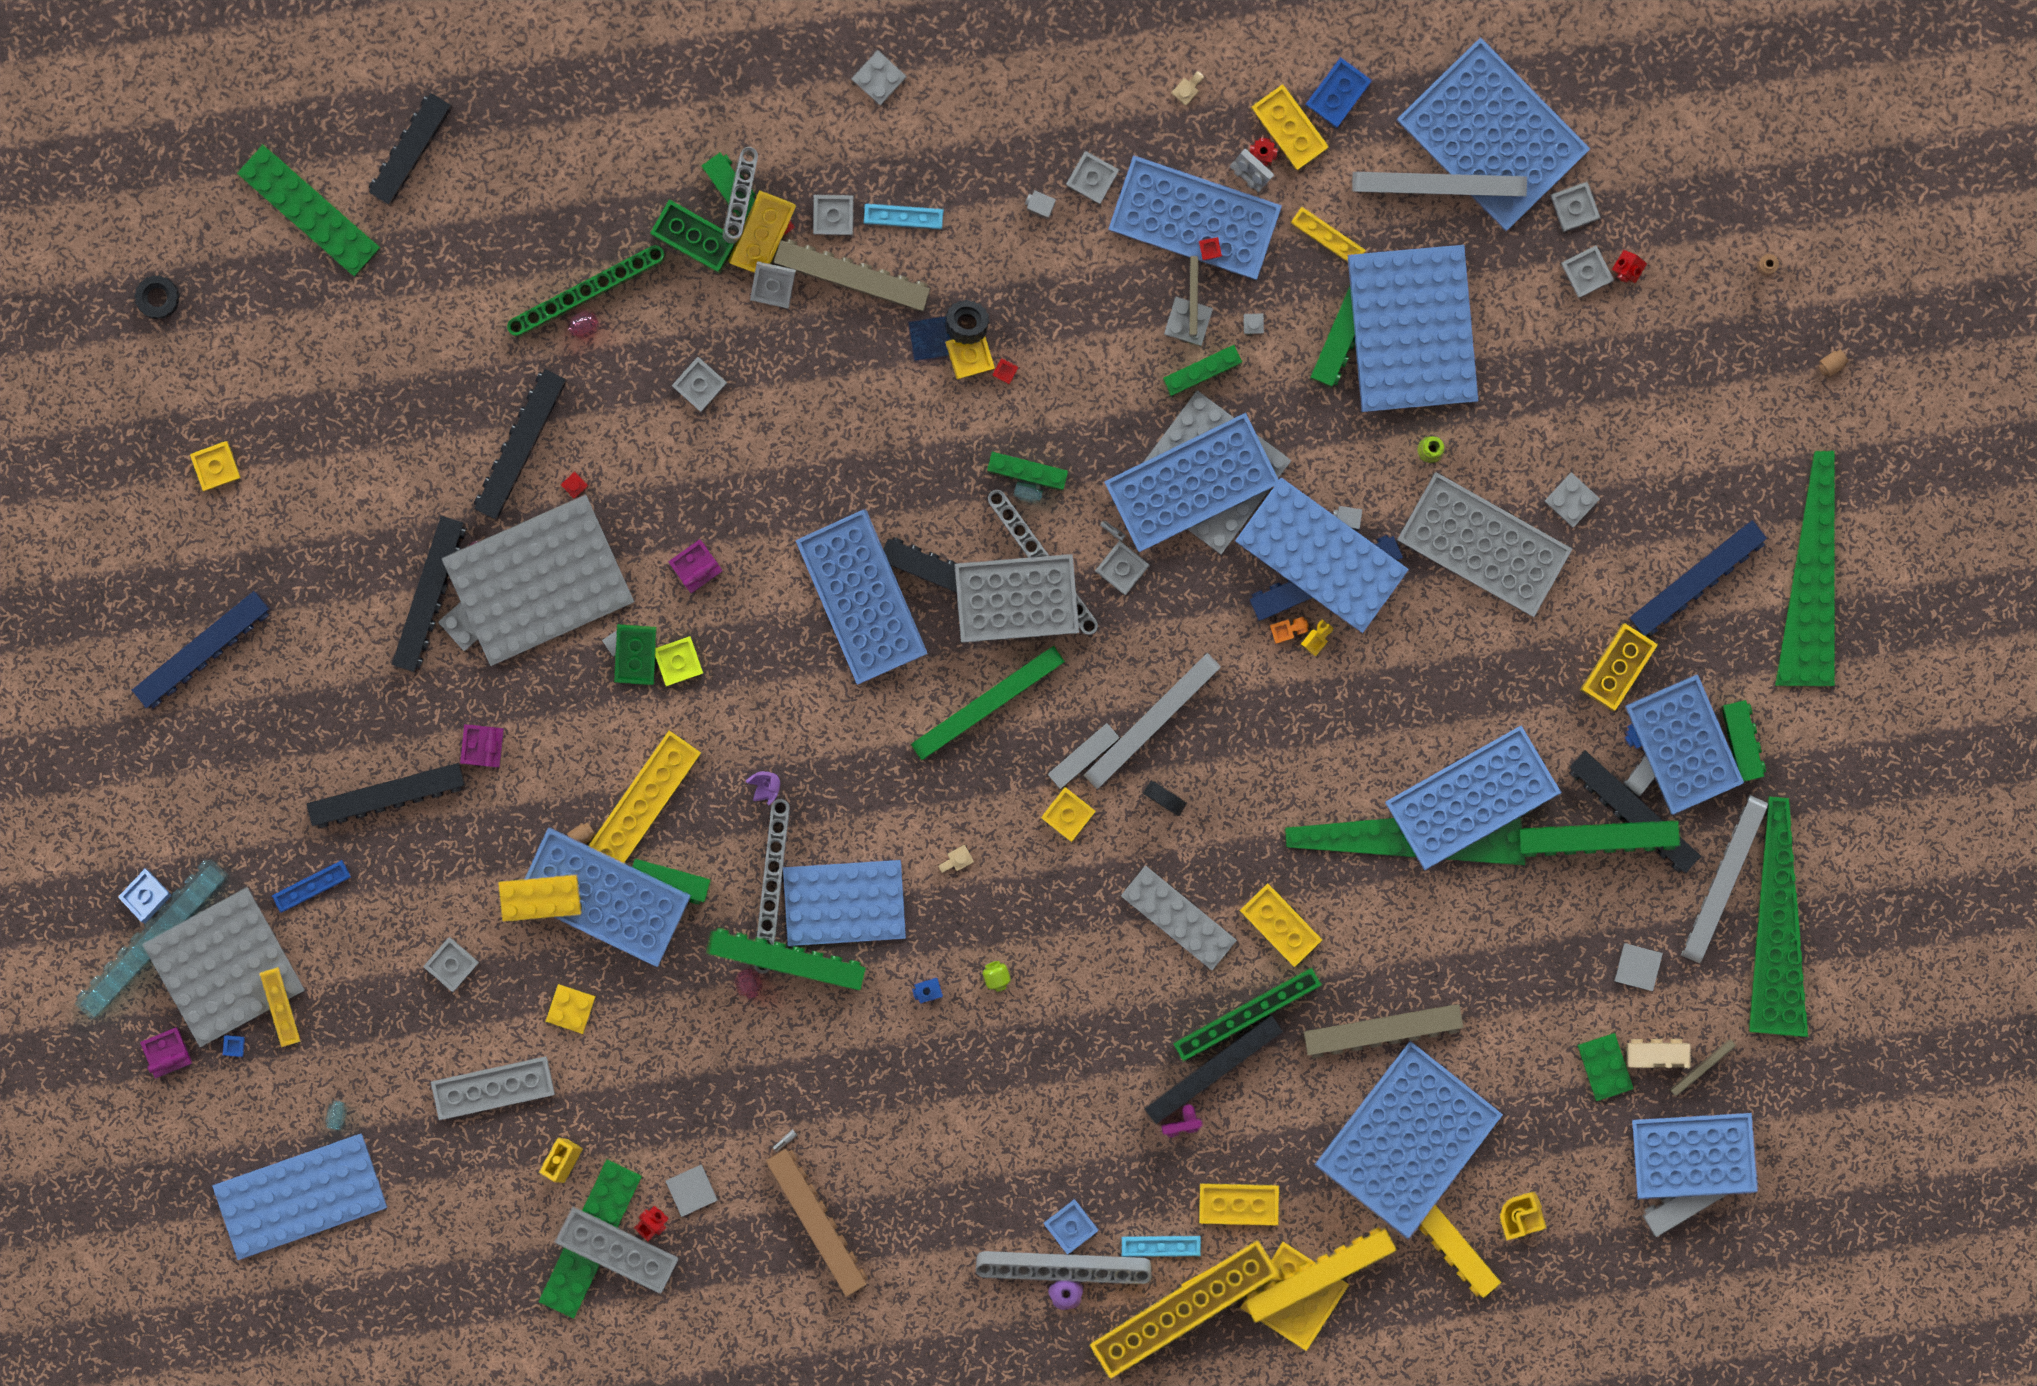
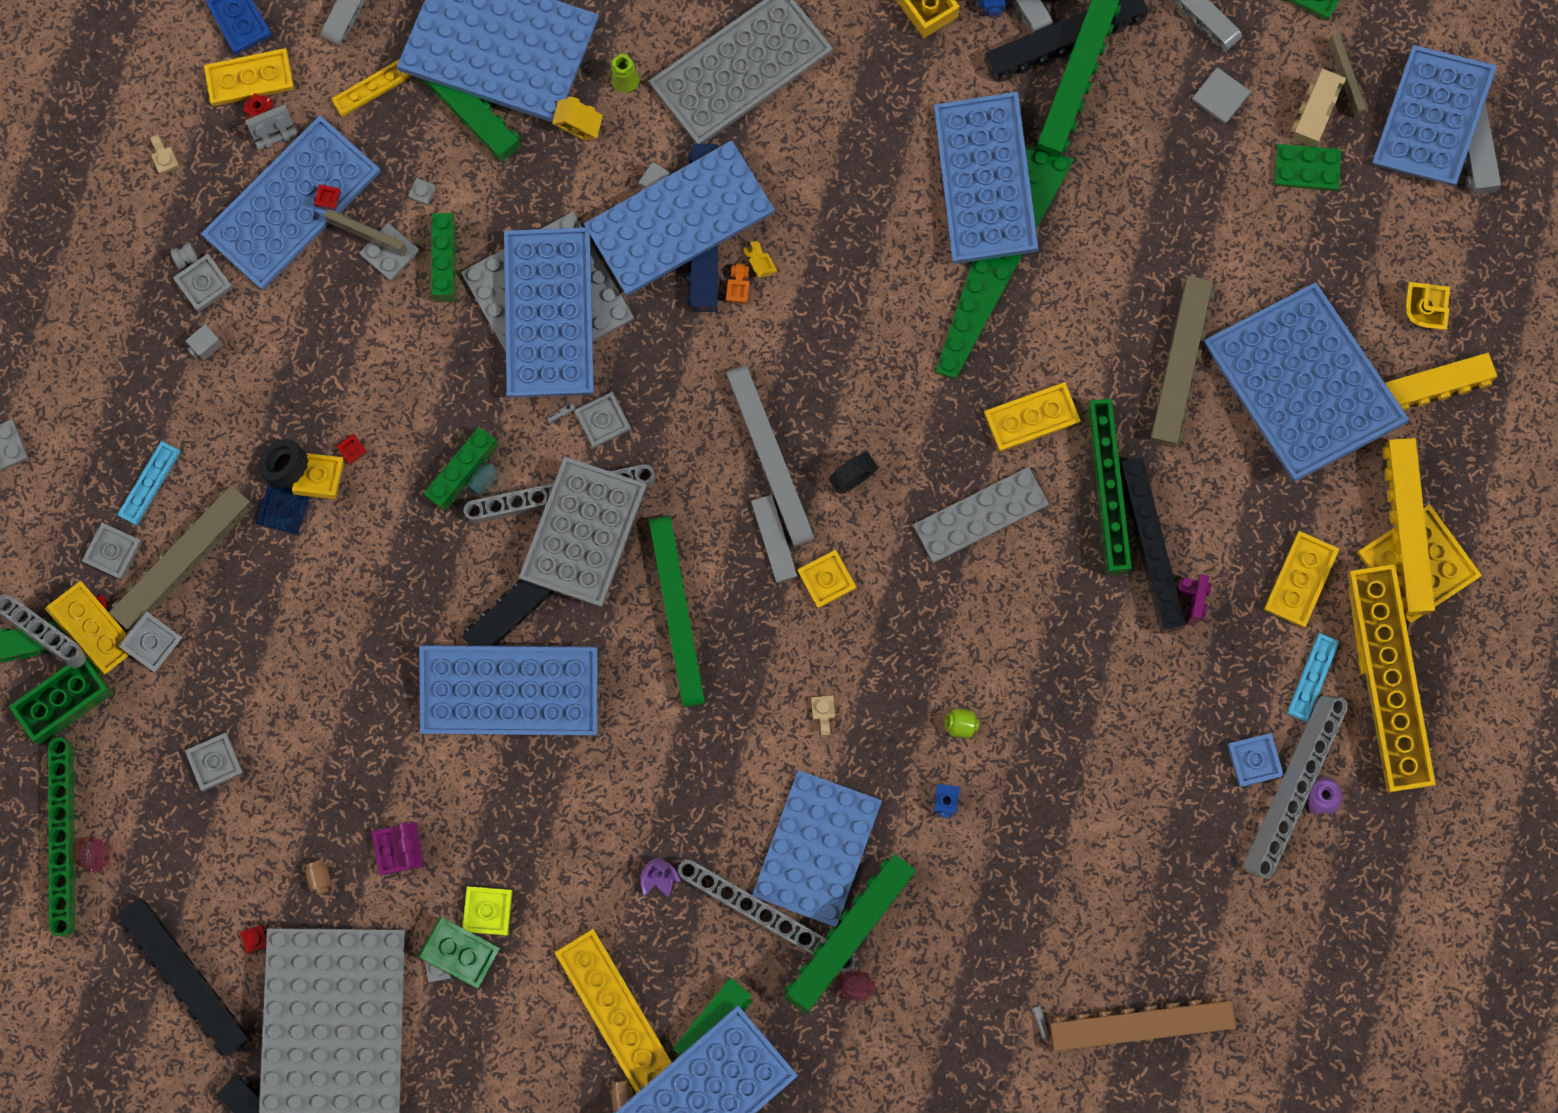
camera: 60 degrees left, 10 degrees down
(644, 513) = (318, 877): none -> medium nougat brick
(1110, 152) = (185, 255): none -> light grey wheel
(1372, 428) = (577, 118): none -> yellow brick

